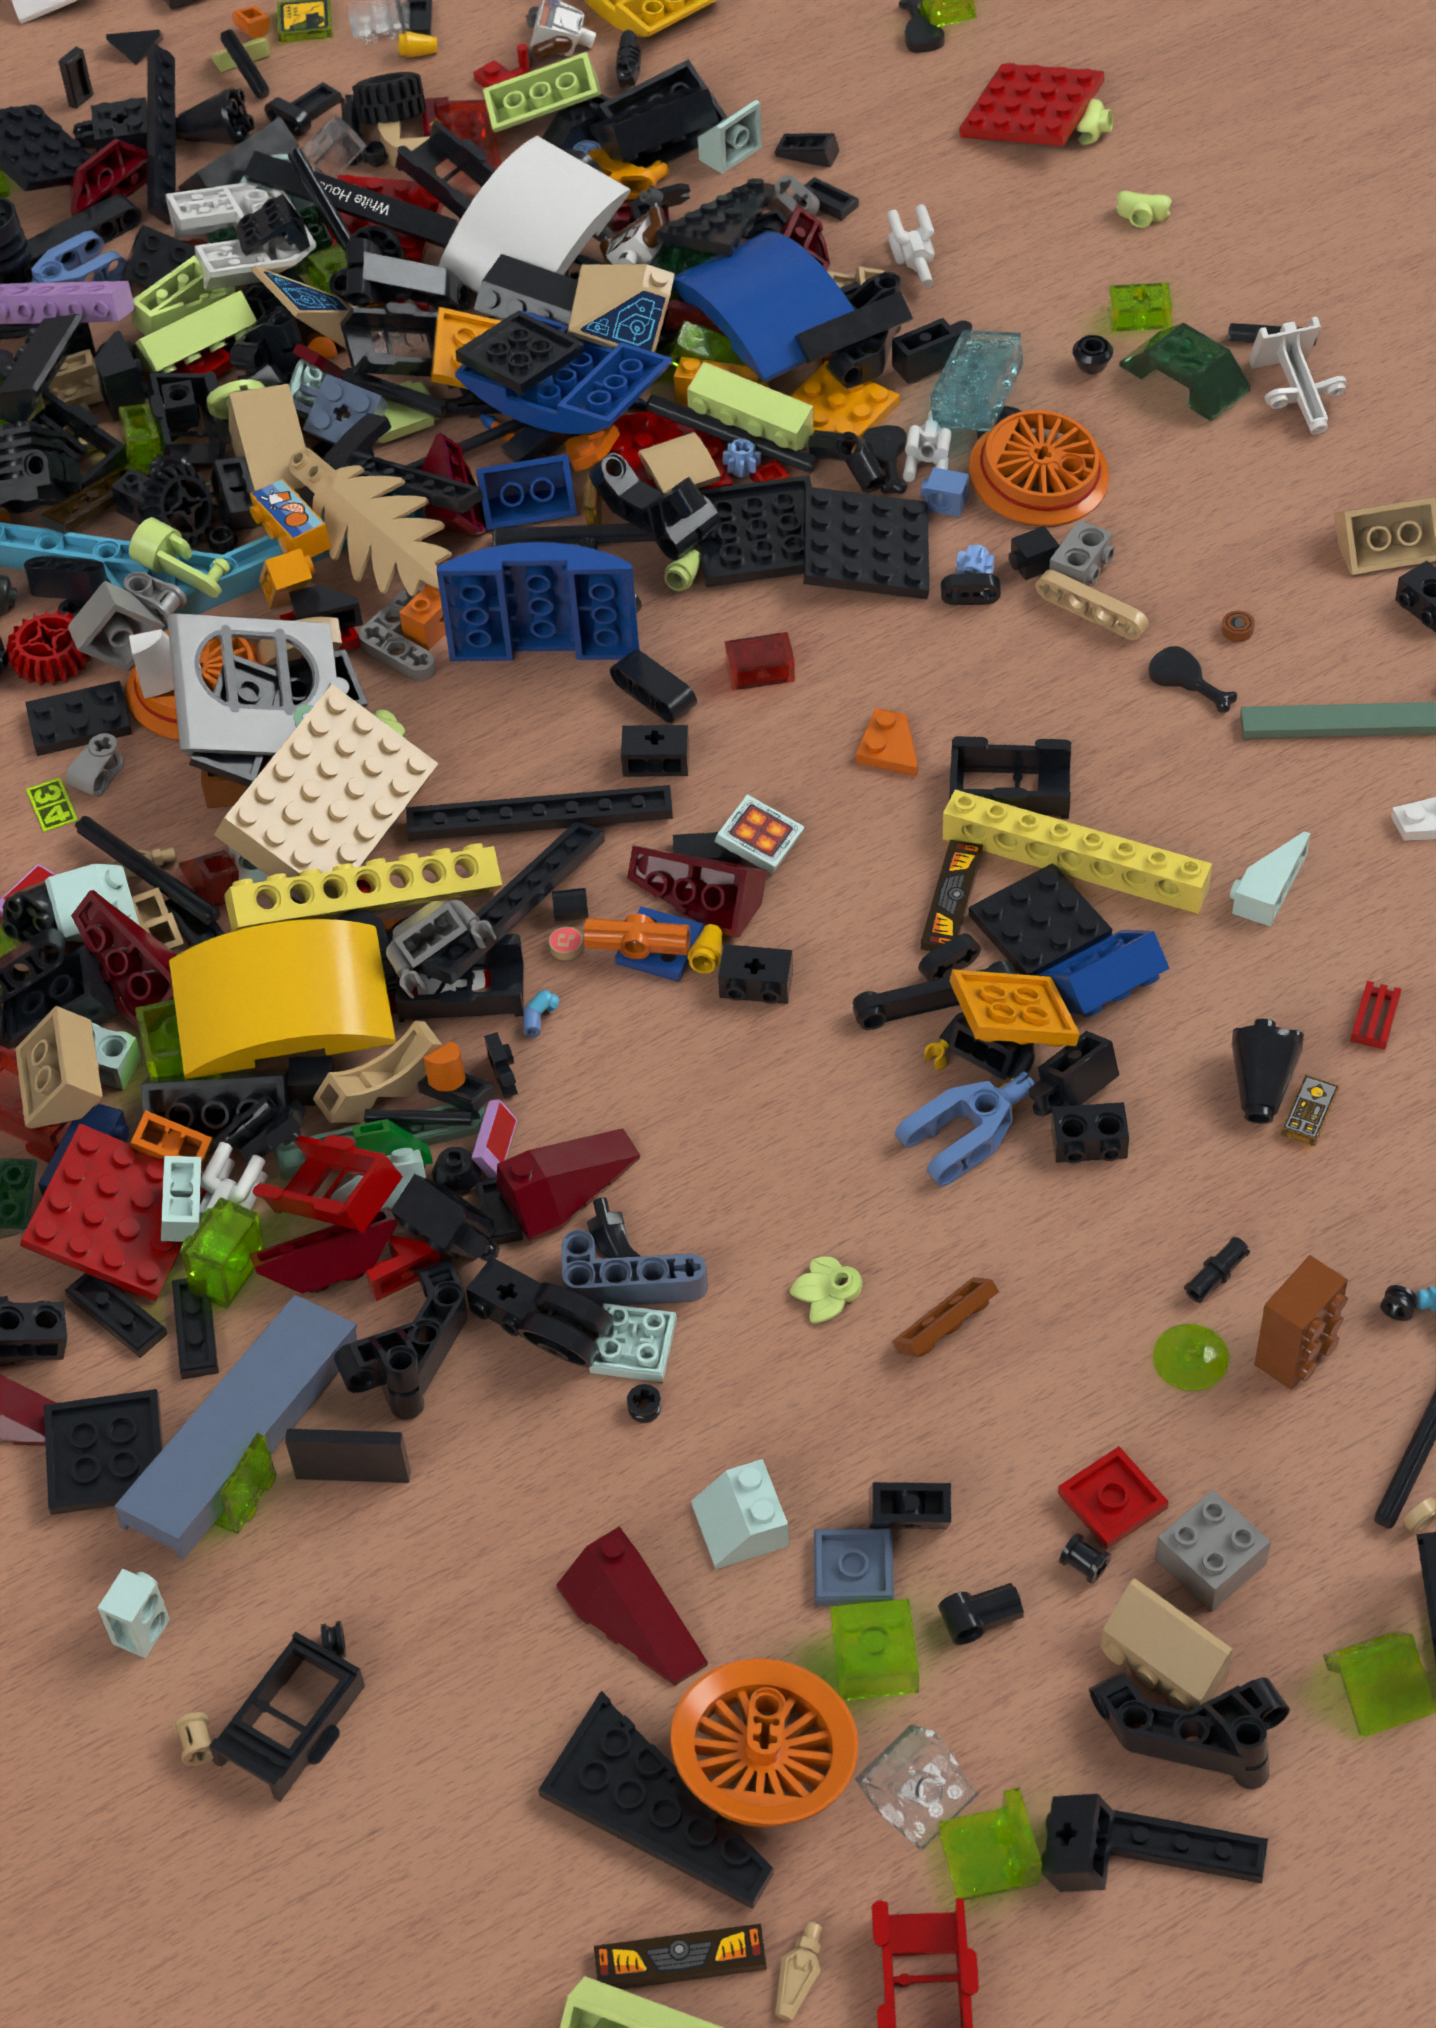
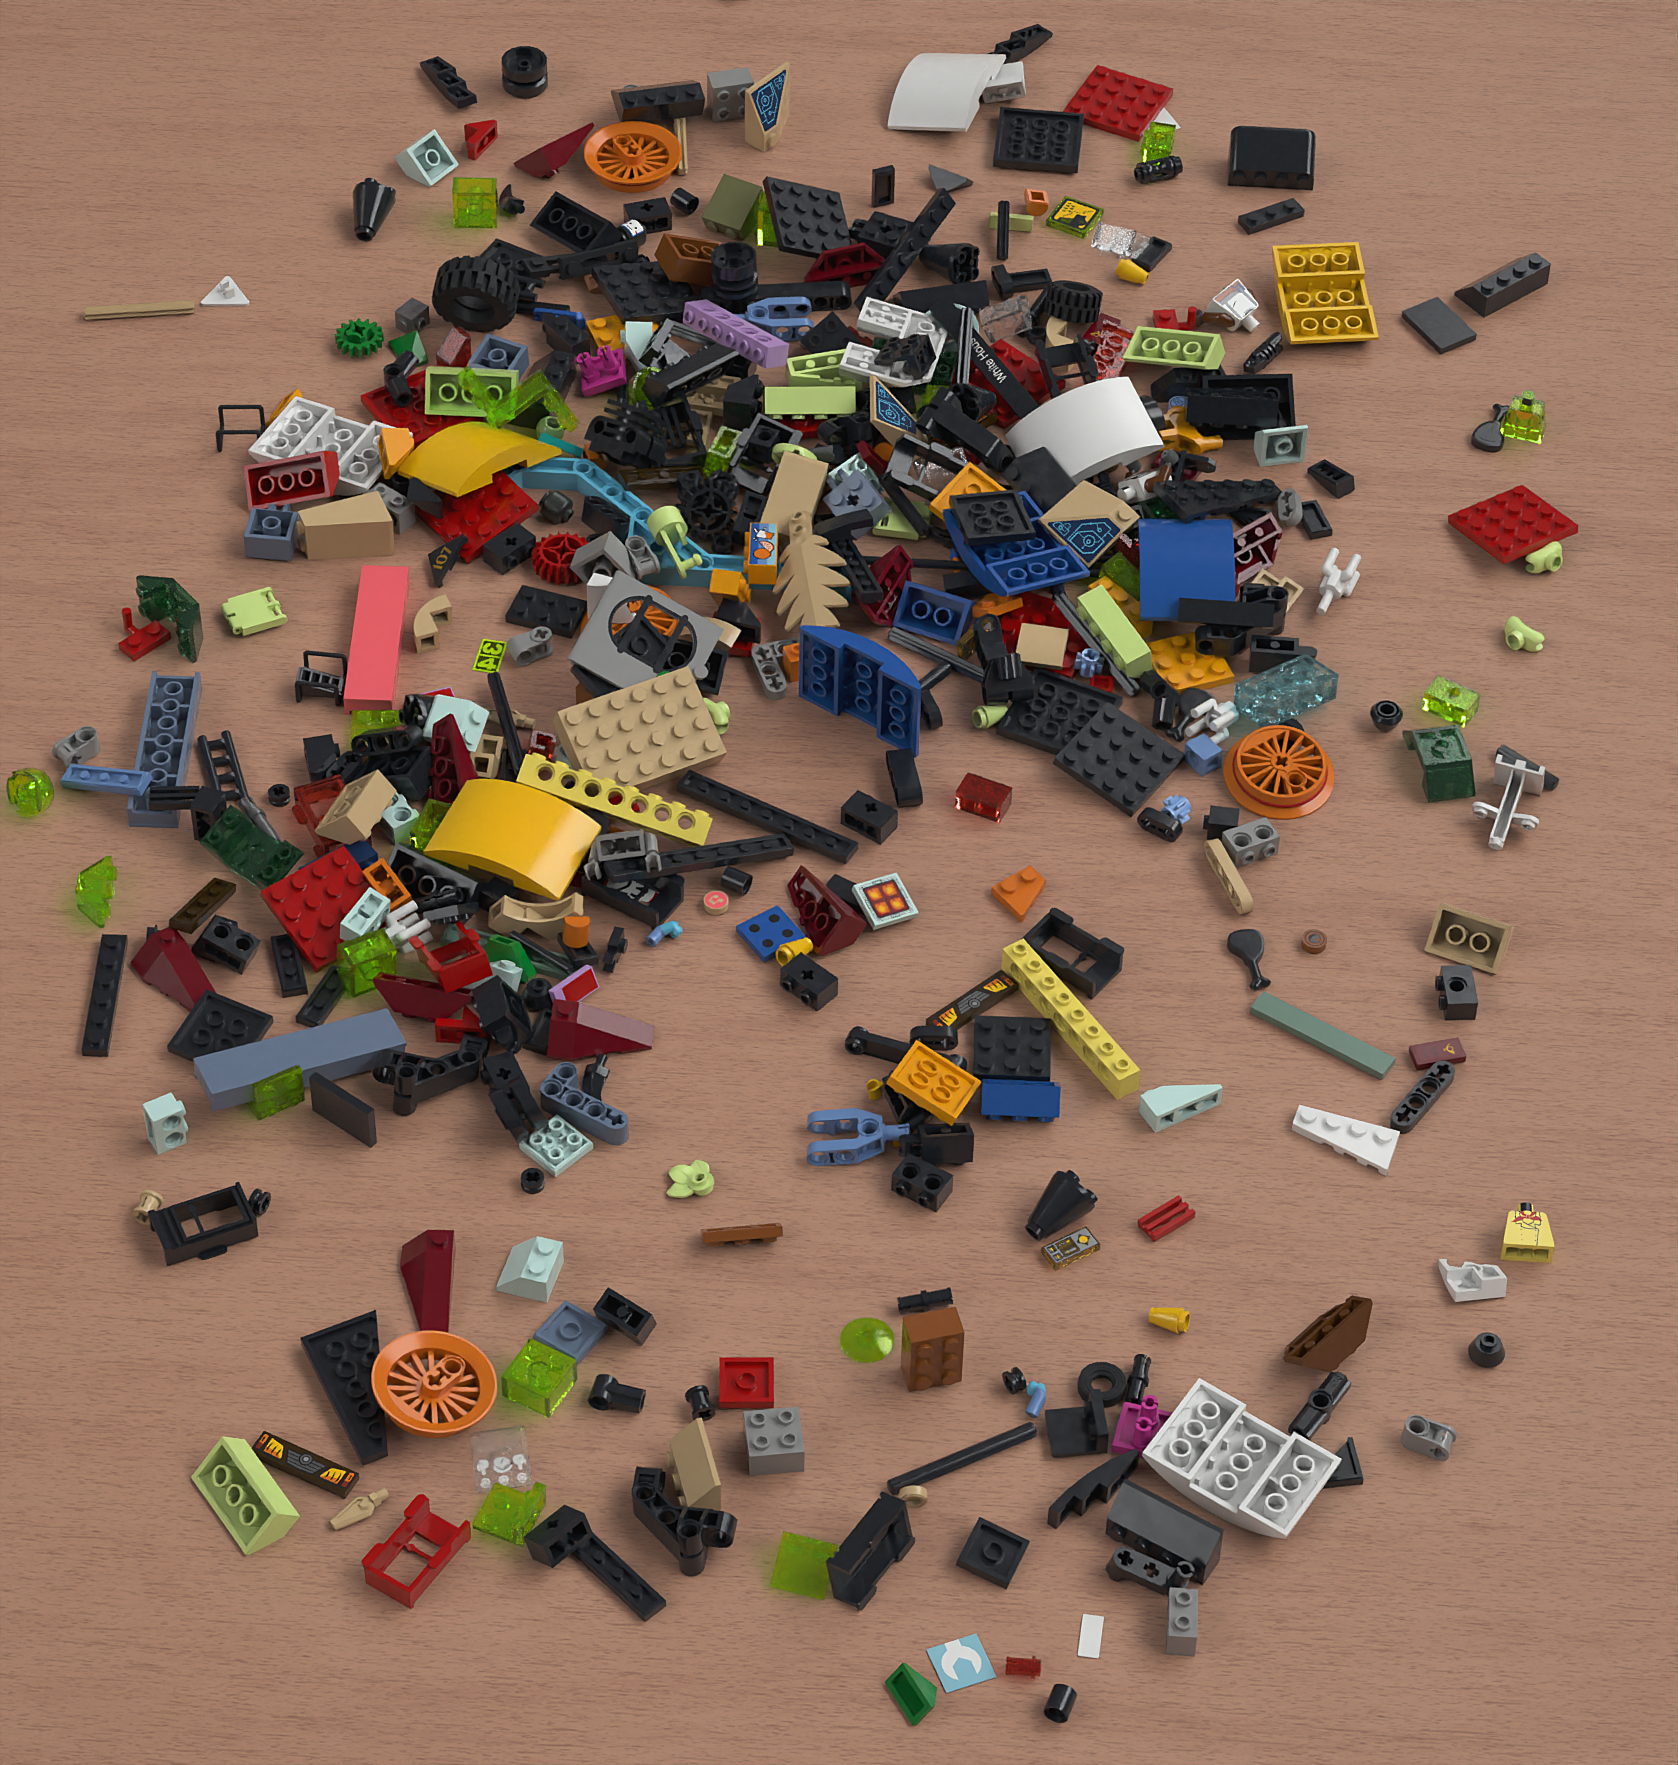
camera: 30 degrees right, 5 degrees down
(637, 936) = (755, 919): orange piece -> none

